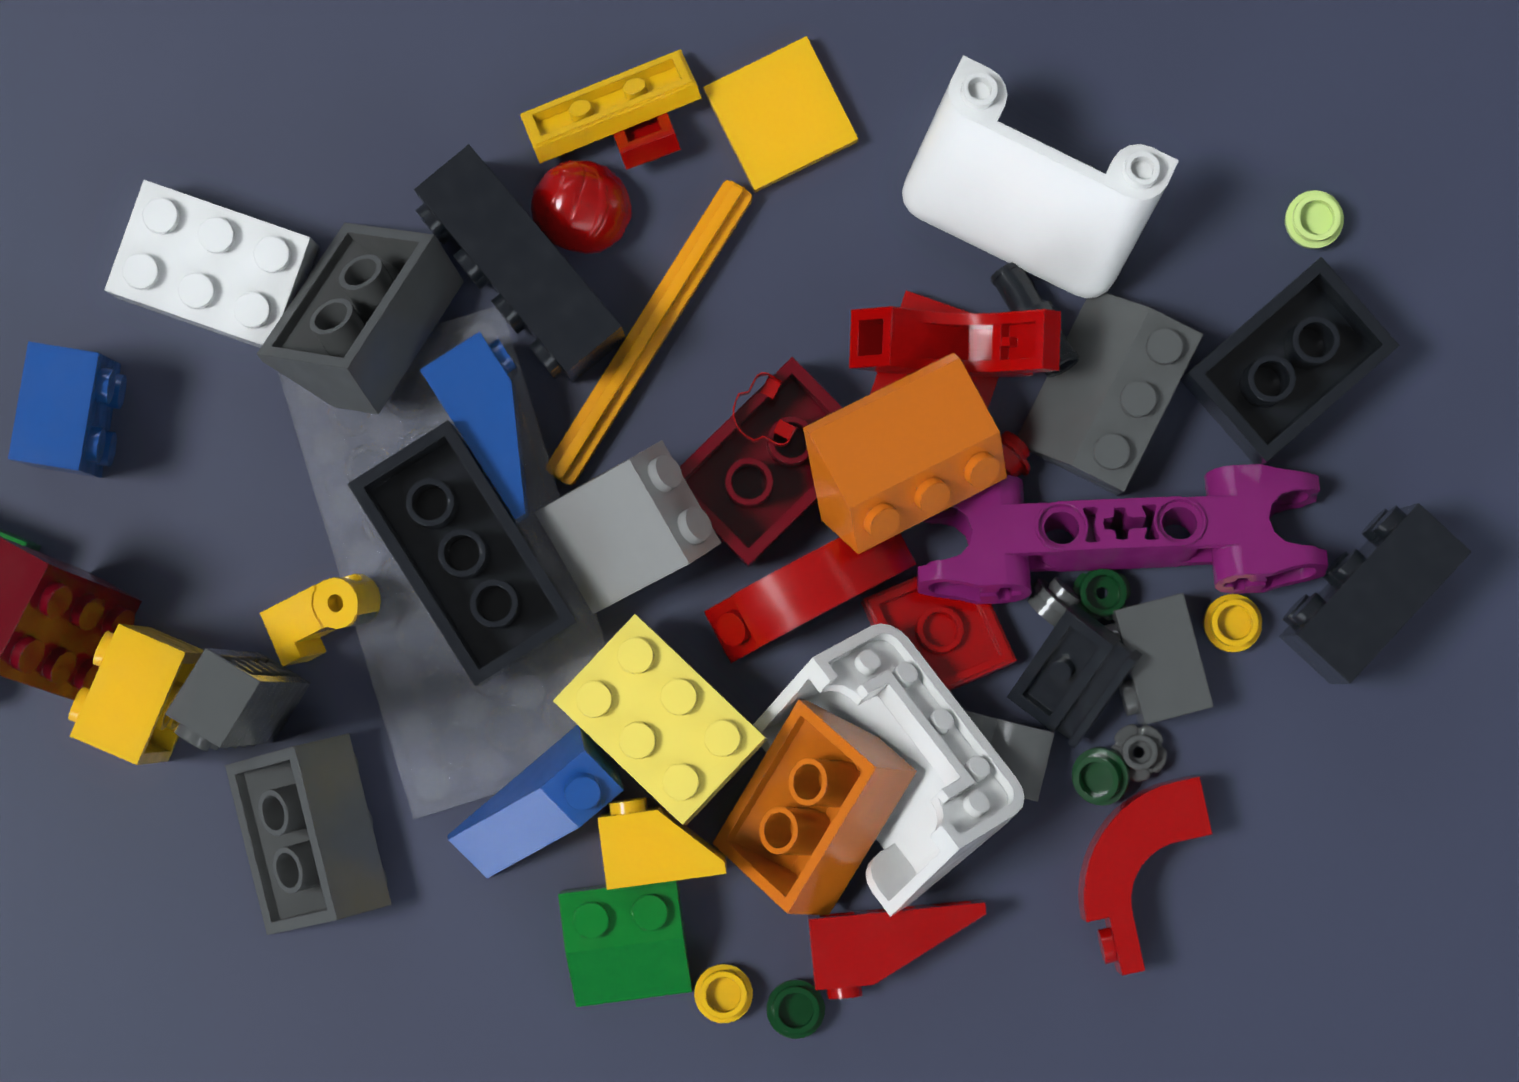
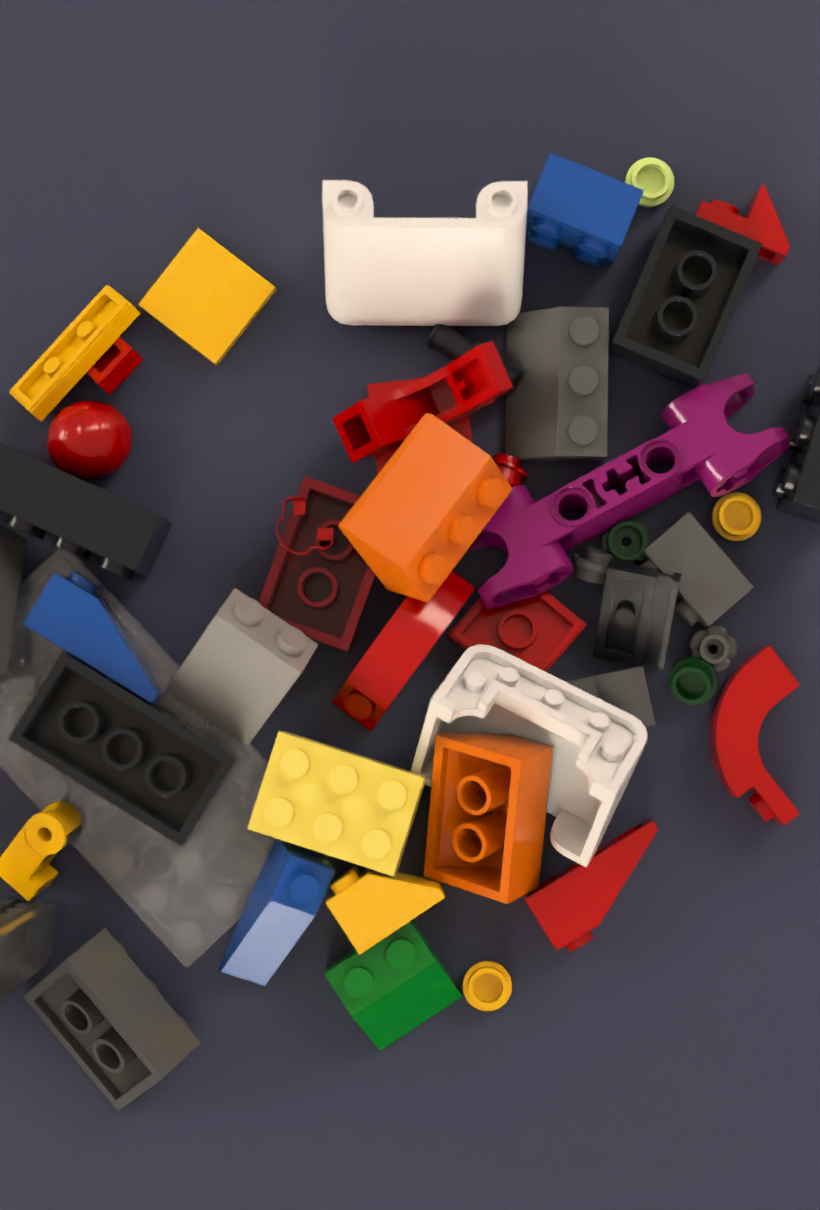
camera: 25 degrees left, 0 degrees up
(649, 331) = (187, 510): light orange axle -> none
(795, 1009) = (547, 971): dark green plate -> none
(1222, 217) = (581, 211): none -> blue brick
(1408, 324) = (759, 224): none -> red slope

